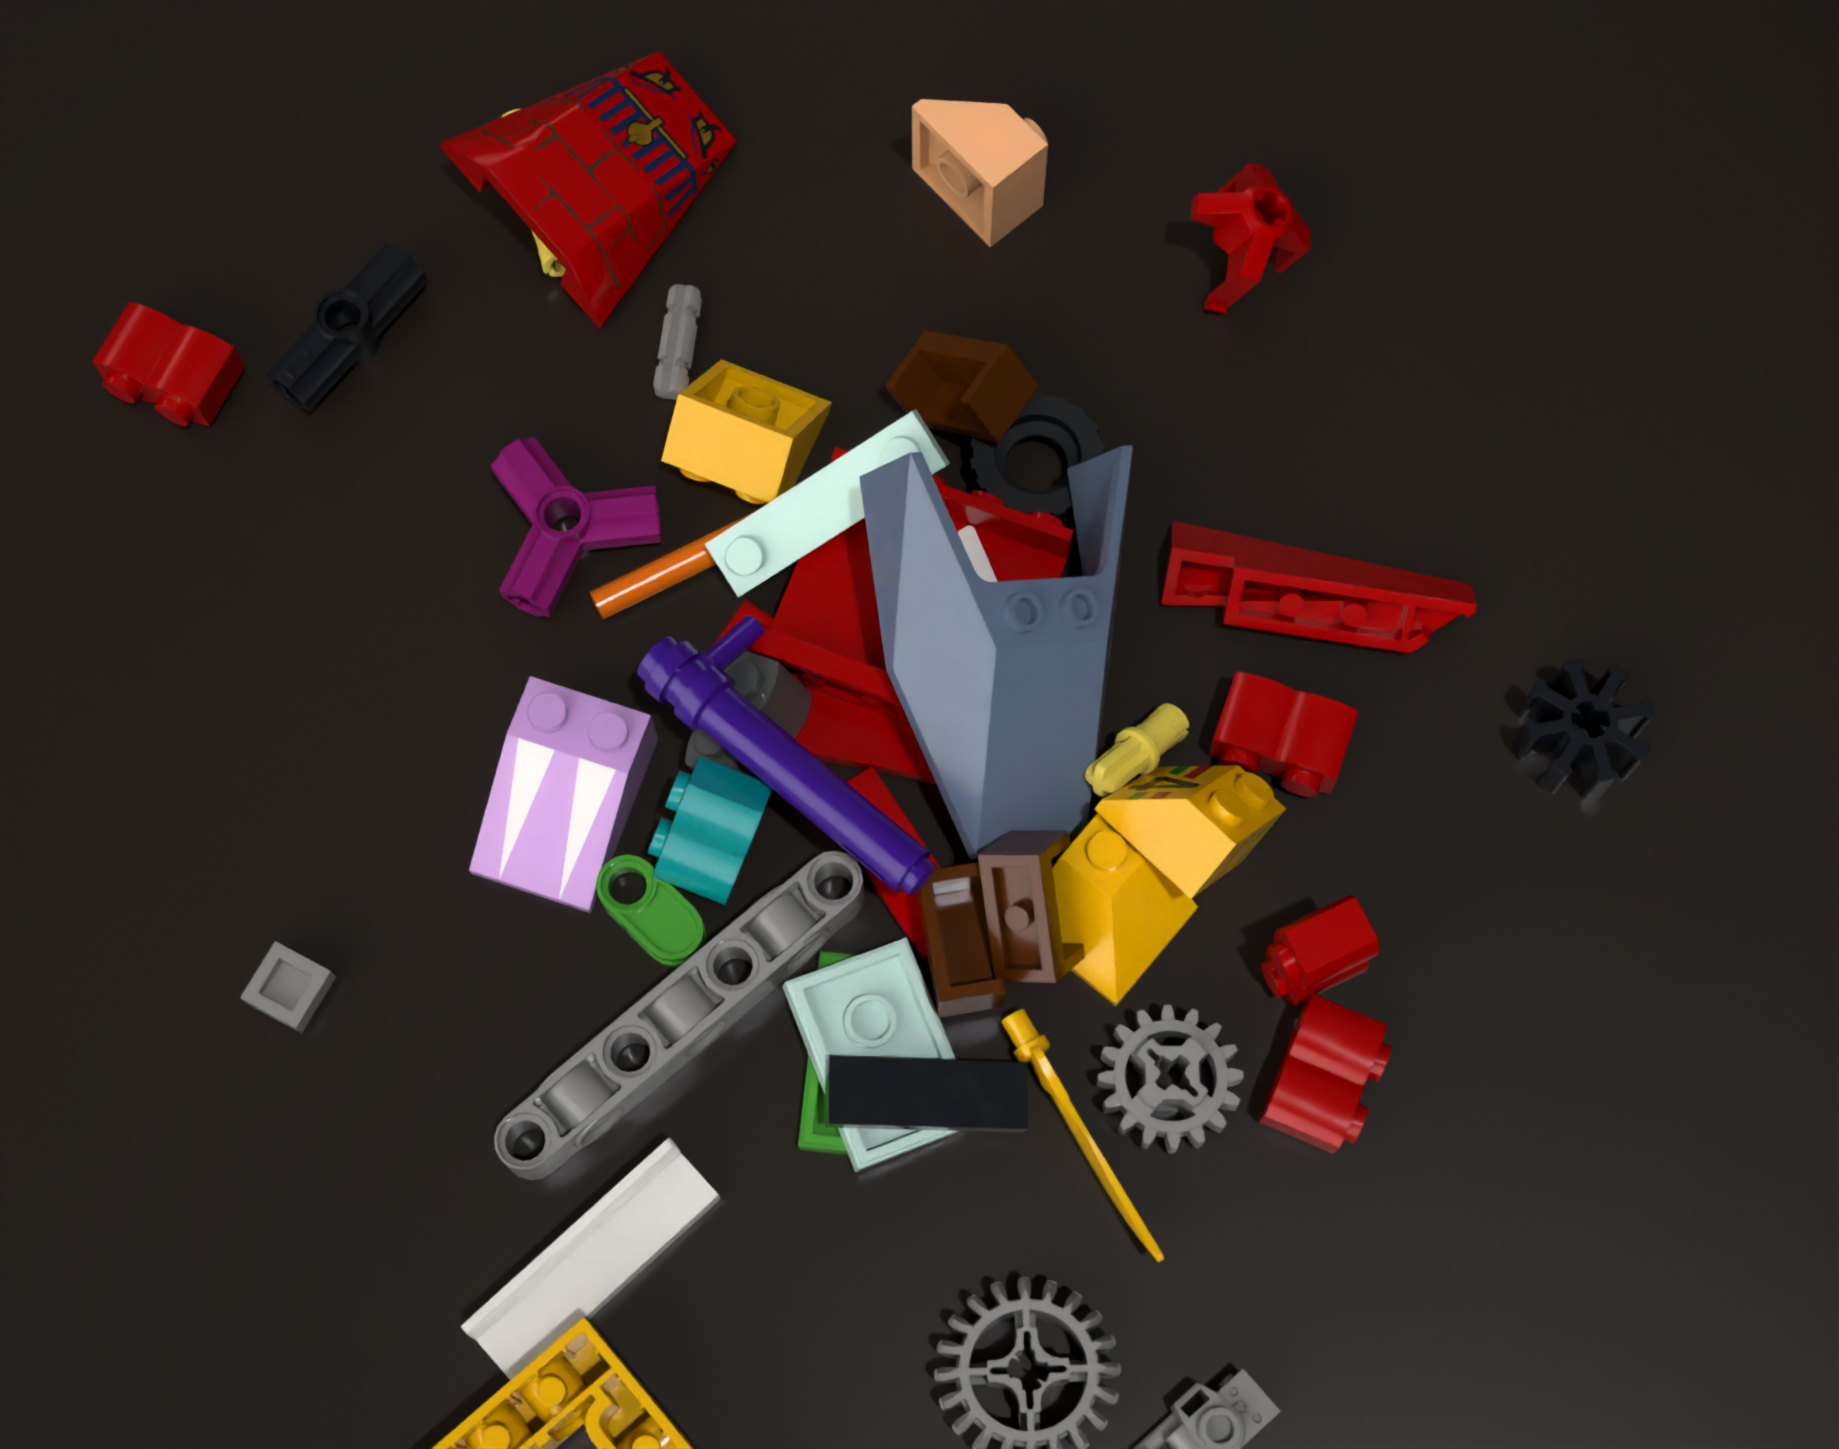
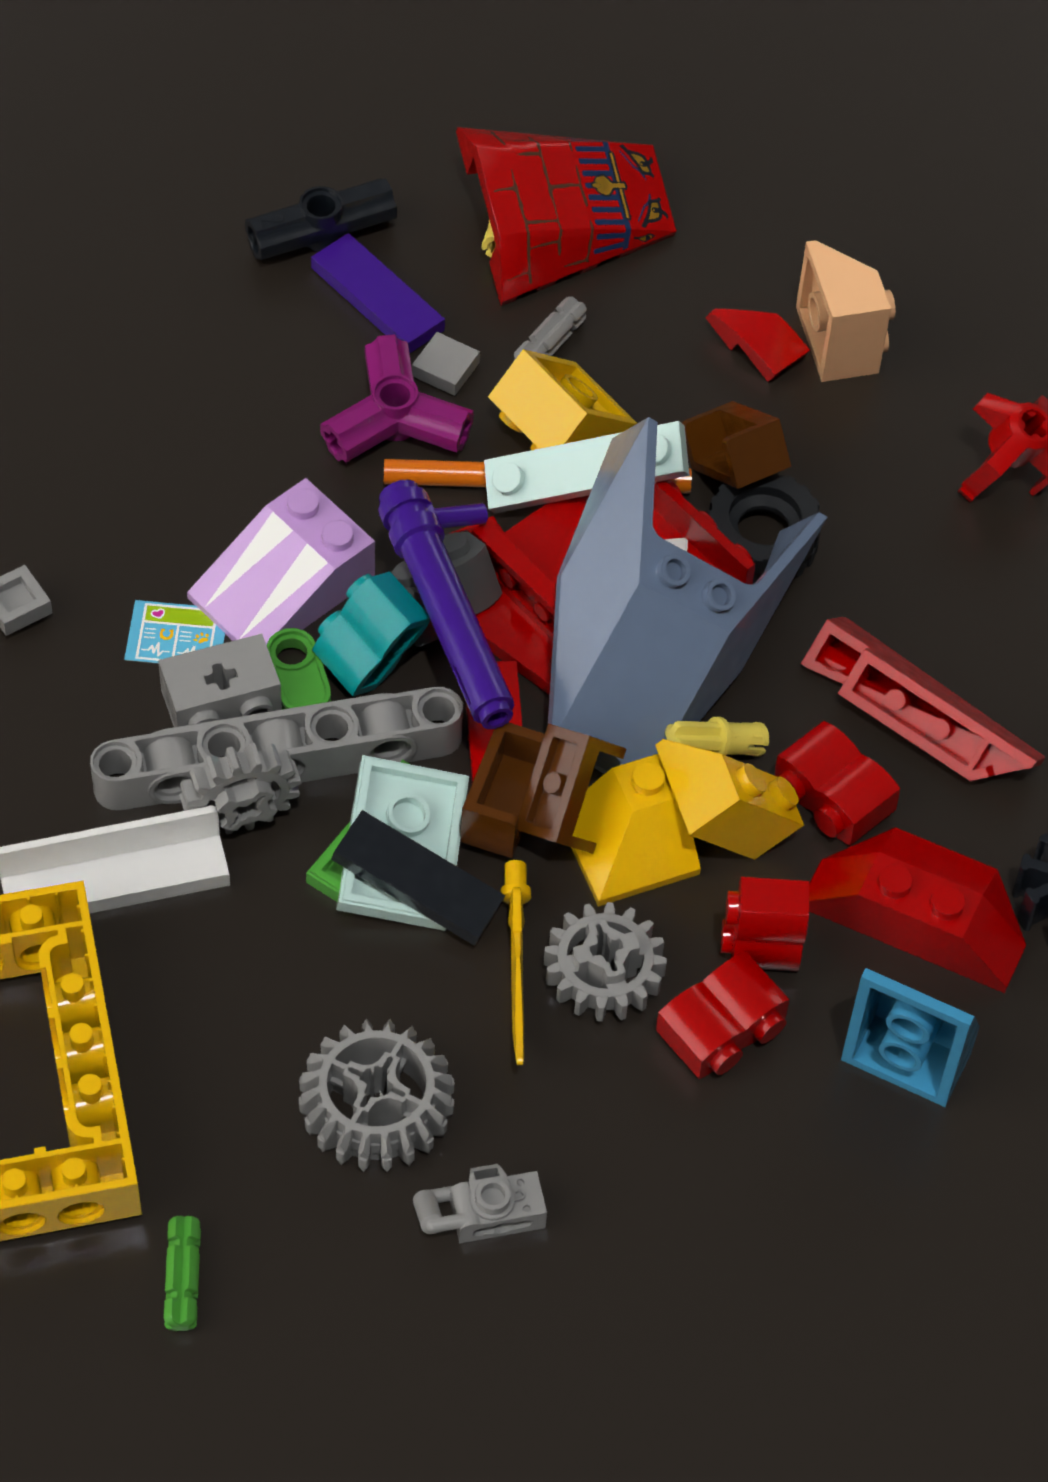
camera: 25 degrees right, 15 degrees down
(168, 365) = (182, 188): red brick -> none
(460, 385) = (377, 292): none -> dark purple tile
(483, 928) = (168, 630): none -> sticker
(585, 435) = (445, 363): none -> light grey tile
(587, 941) = (220, 682): none -> light grey brick
(682, 1098) = (243, 786): none -> light grey gear
(904, 228) = (762, 336): none -> red slope
(1441, 824) = (923, 904): none -> red wedge
(1535, 996) = (908, 1037): none -> dark azure slope

